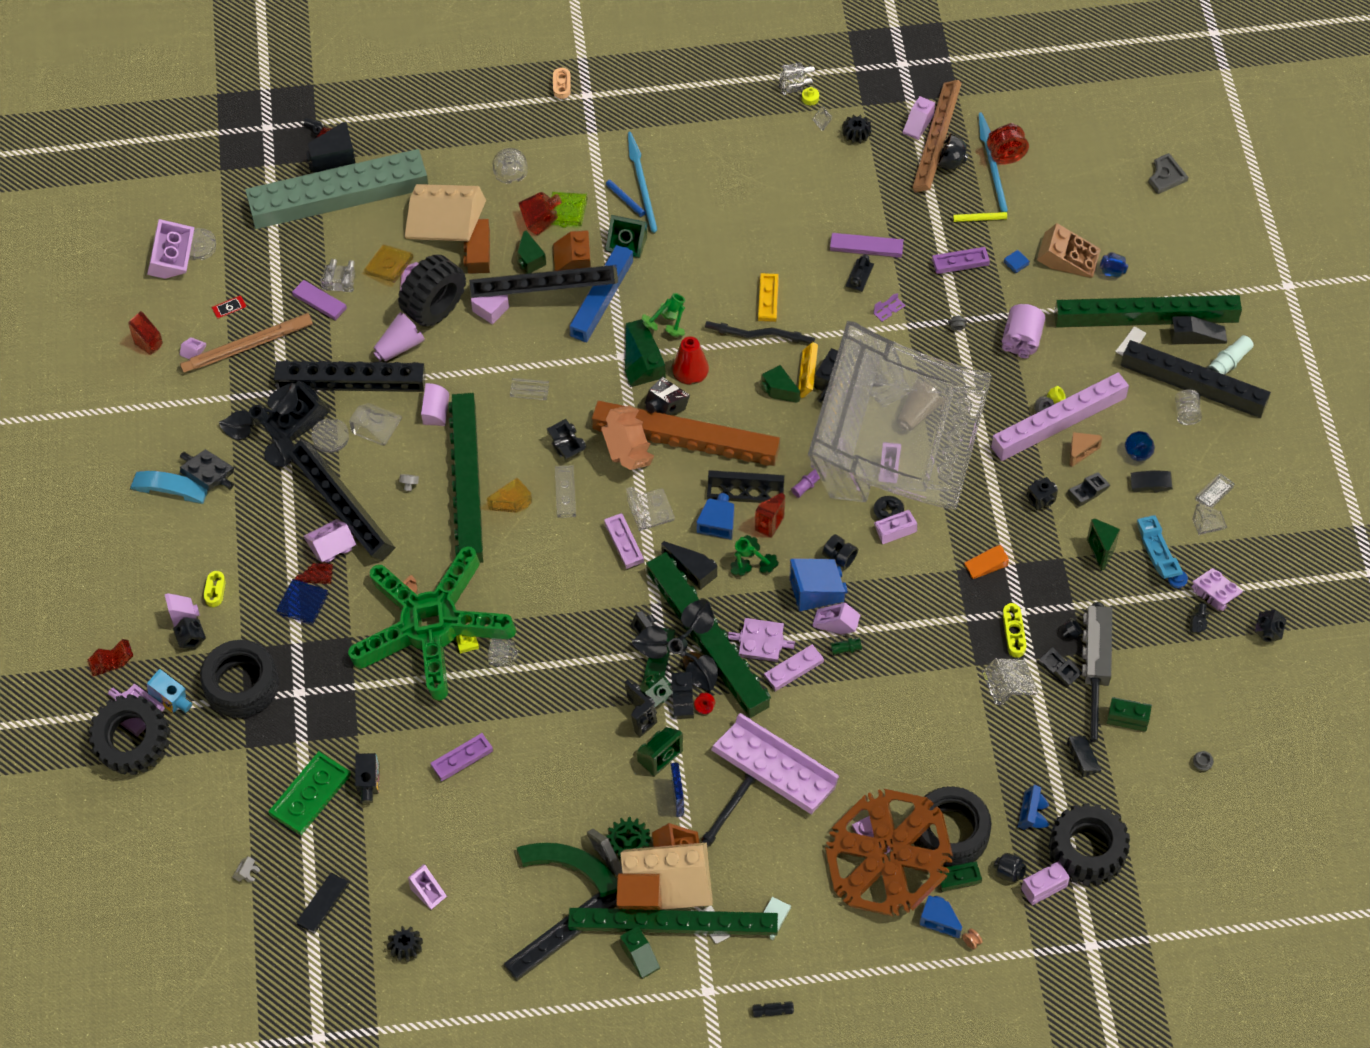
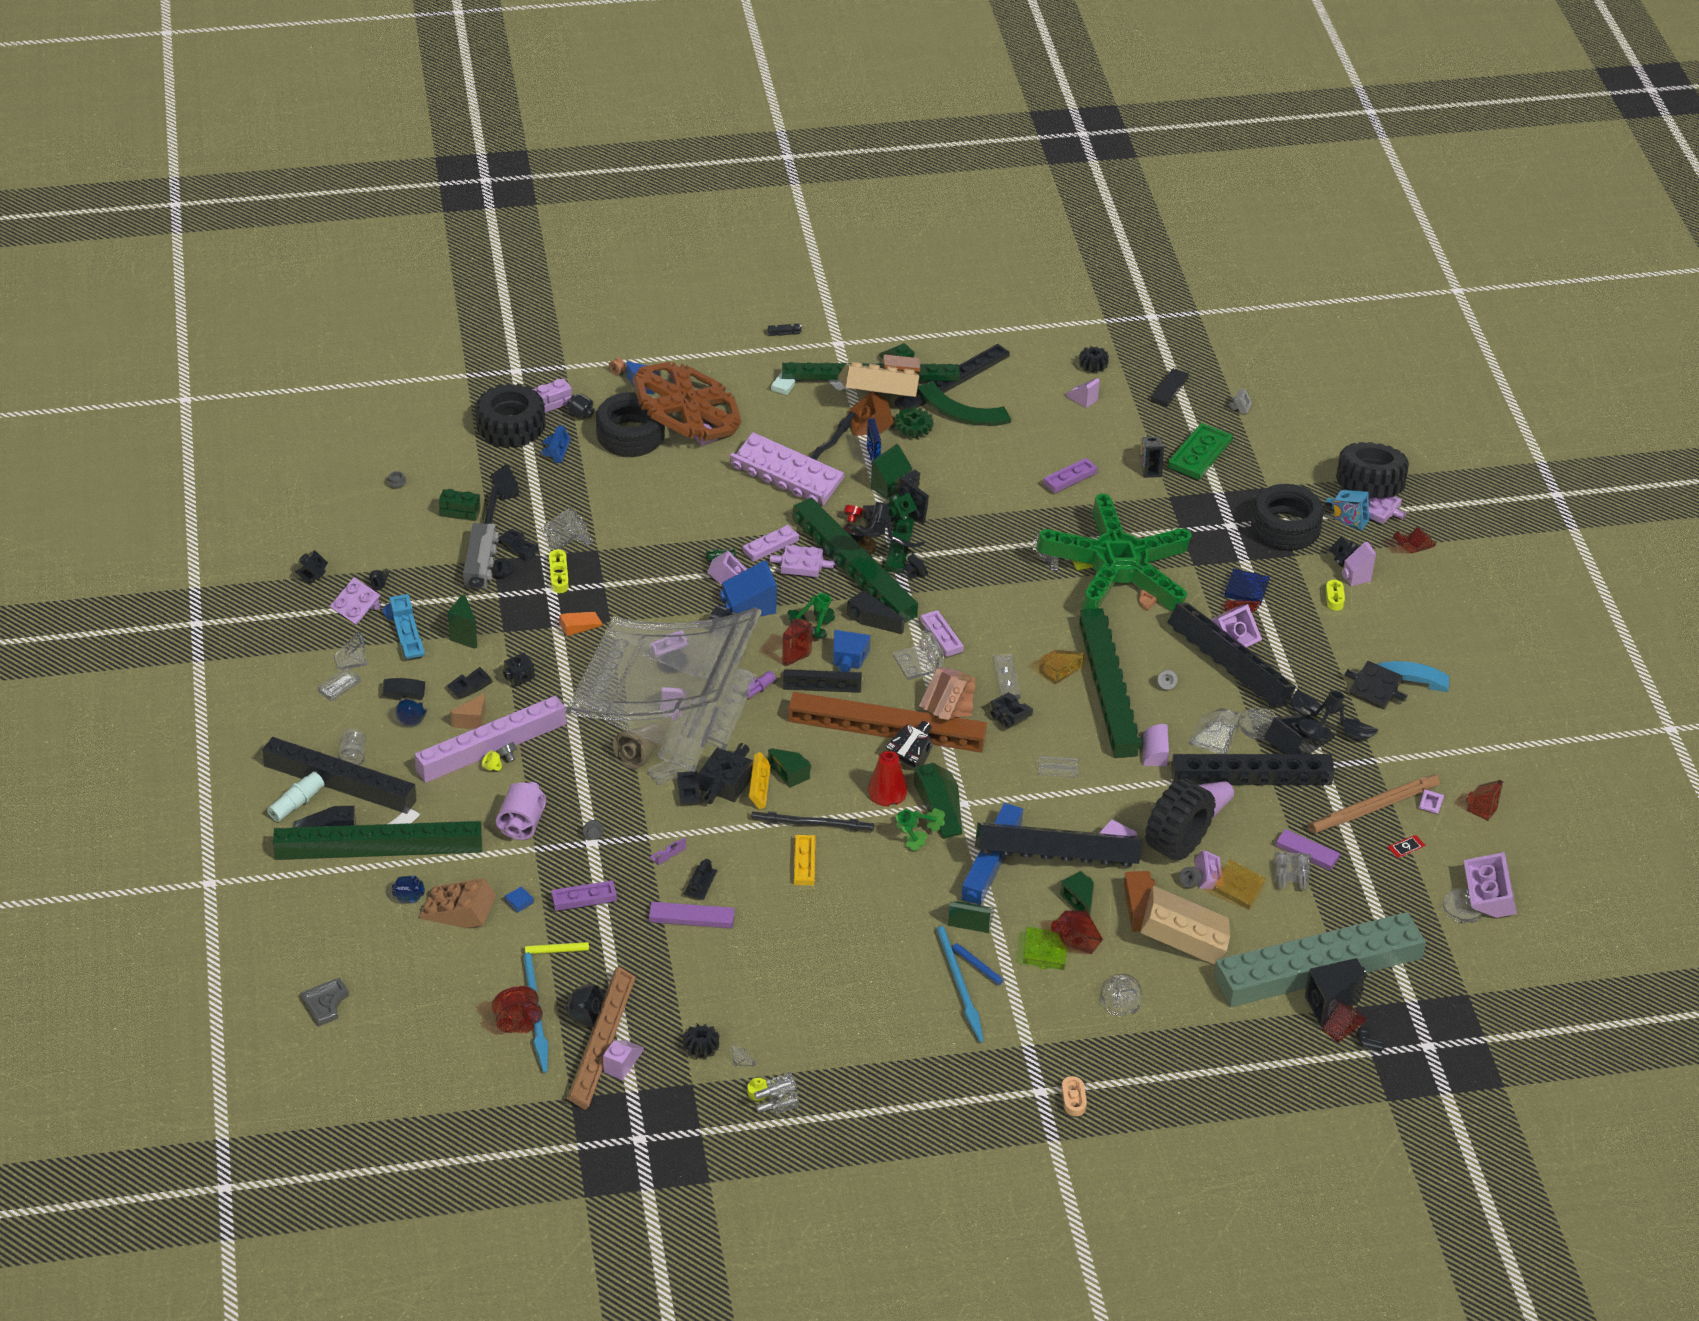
camera: 175 degrees right, 15 degrees down
(572, 251) = (1030, 895): dark orange slope -> none
(605, 850) = (934, 405): dark grey tile -> none

